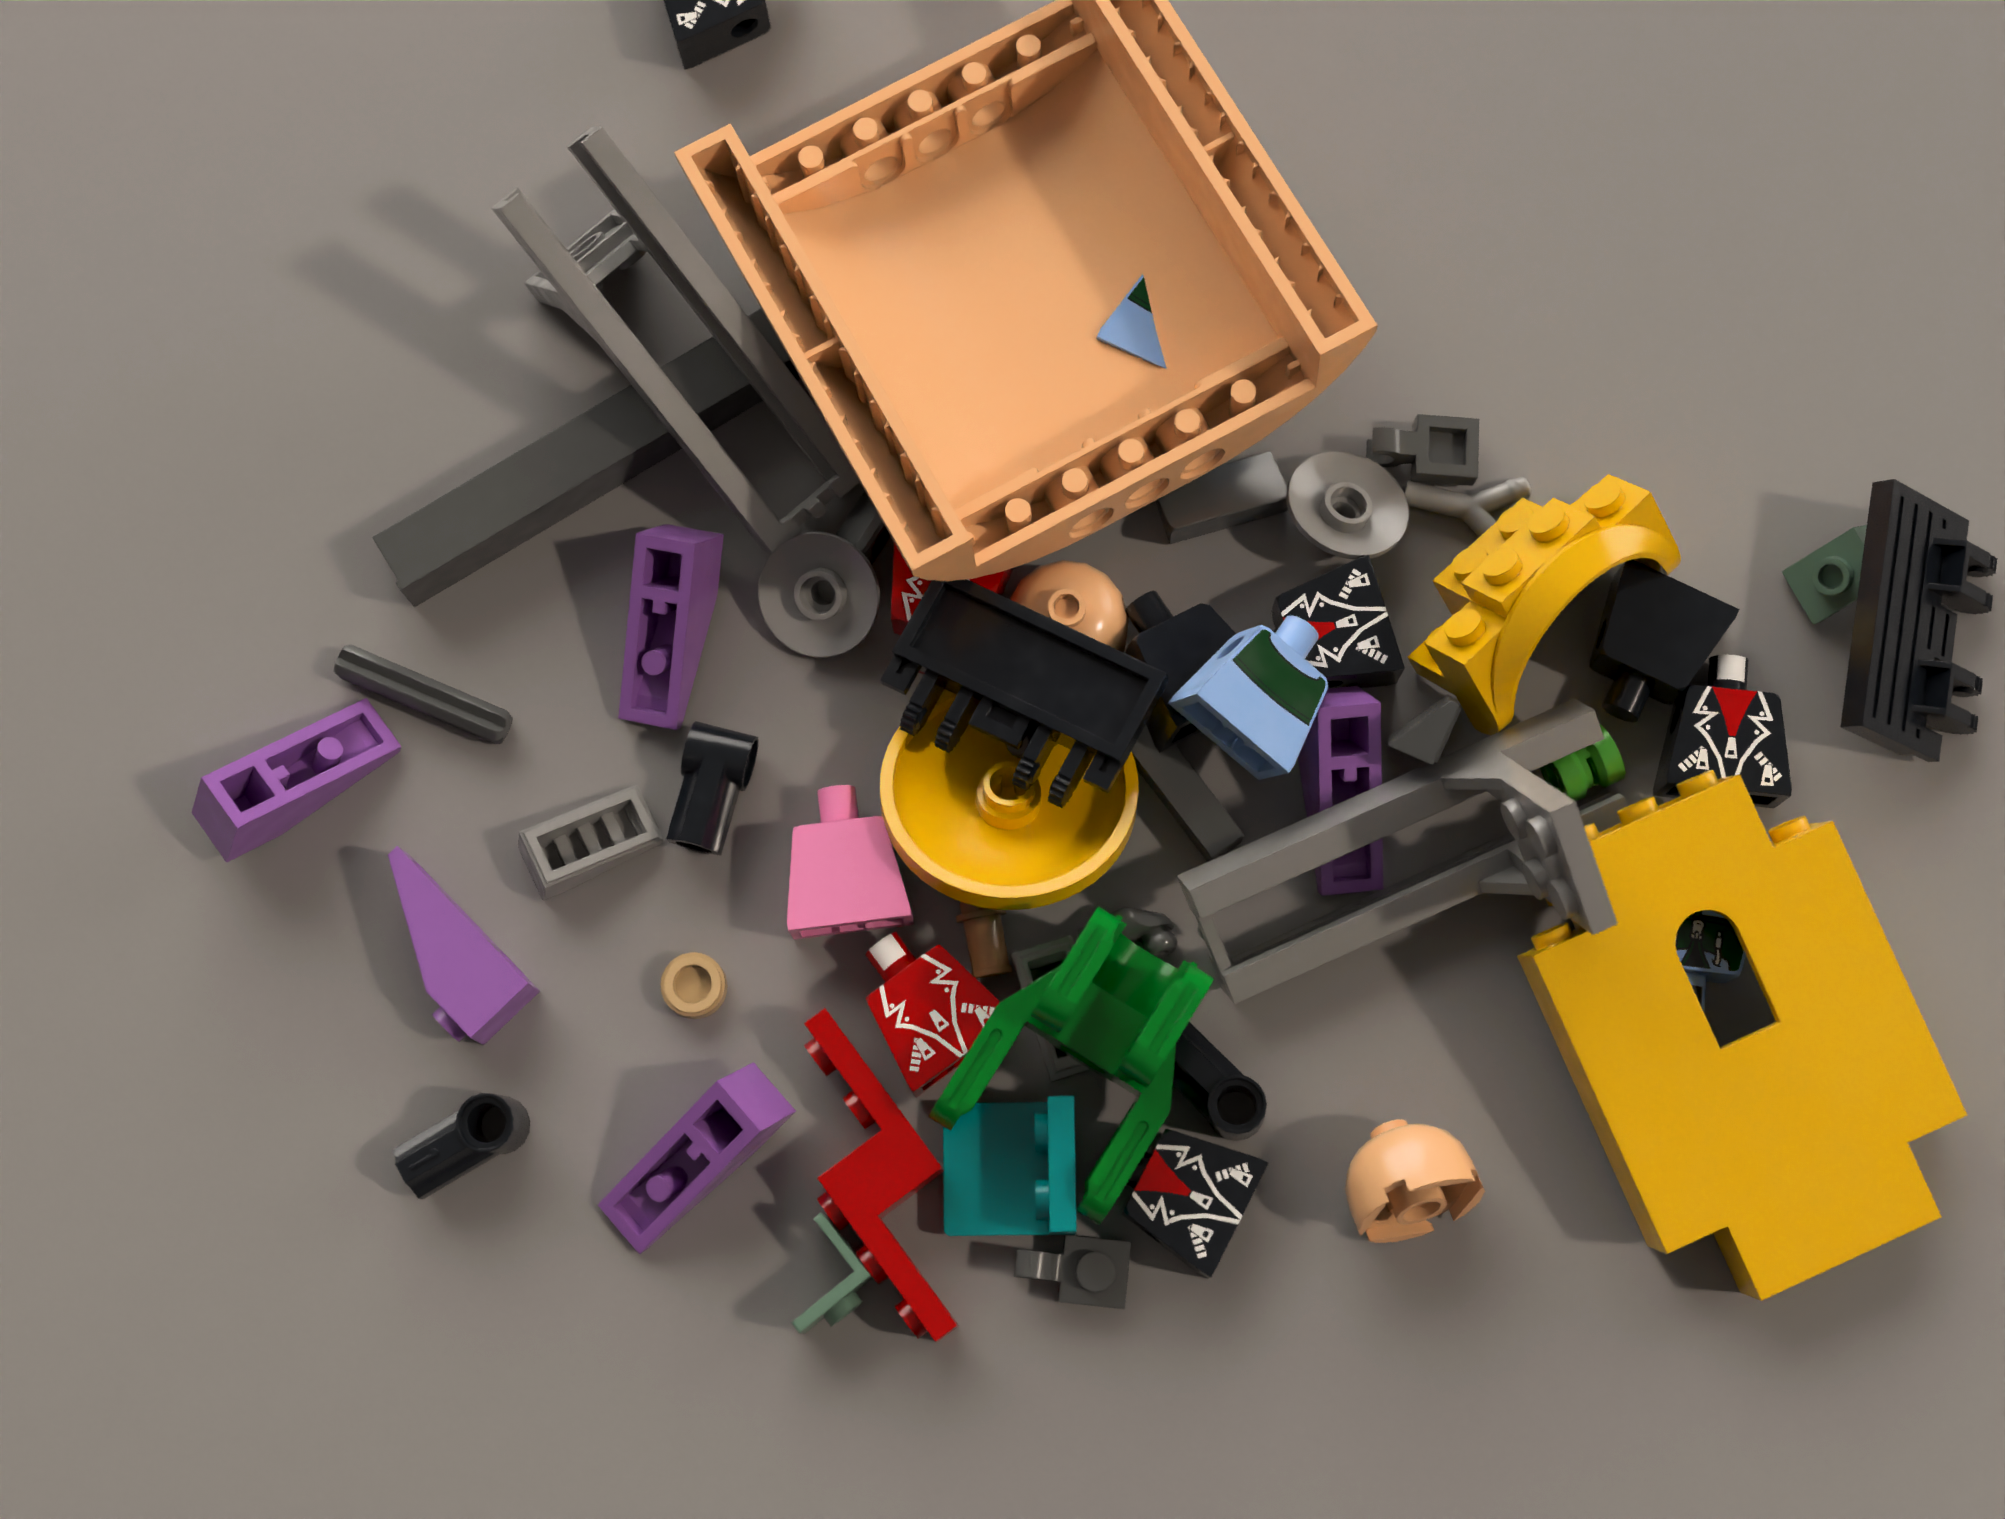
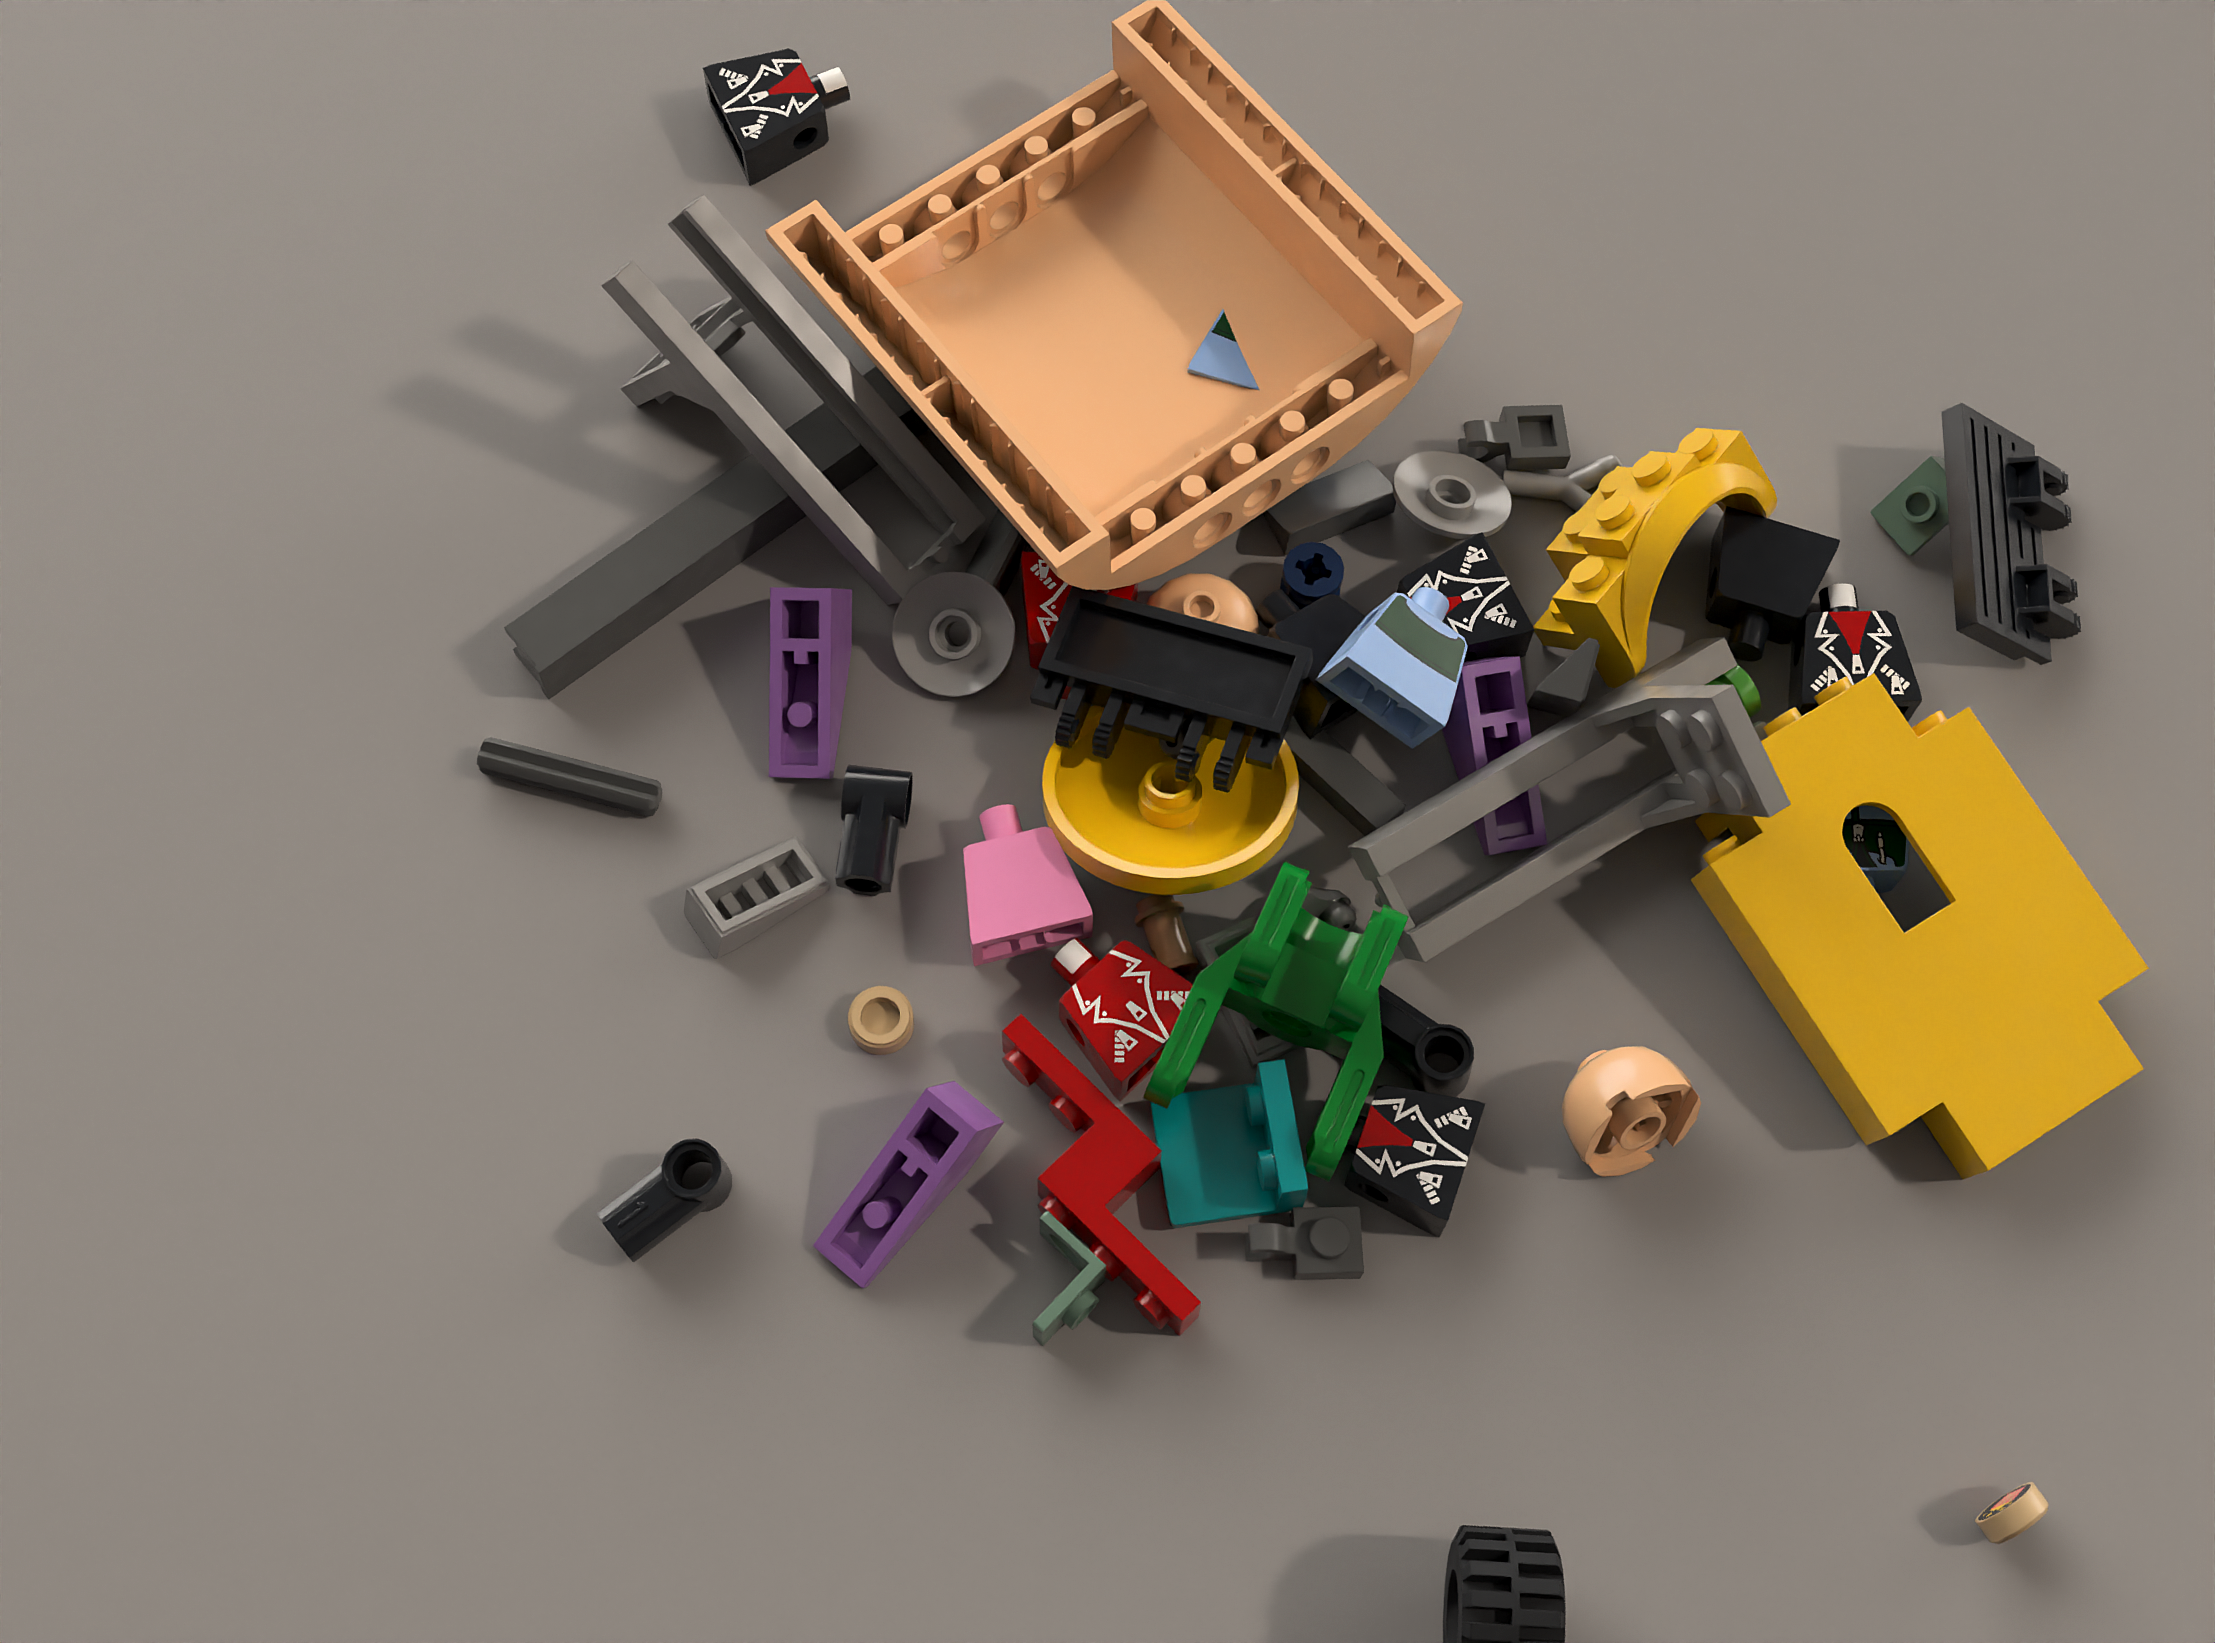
camera: 15 degrees left, 10 degrees down
(290, 779) = (444, 871): medium lavender slope -> none
(457, 960) = (653, 1031): medium lavender slope -> none
(1187, 590) = (1319, 562): none -> dark blue wheel

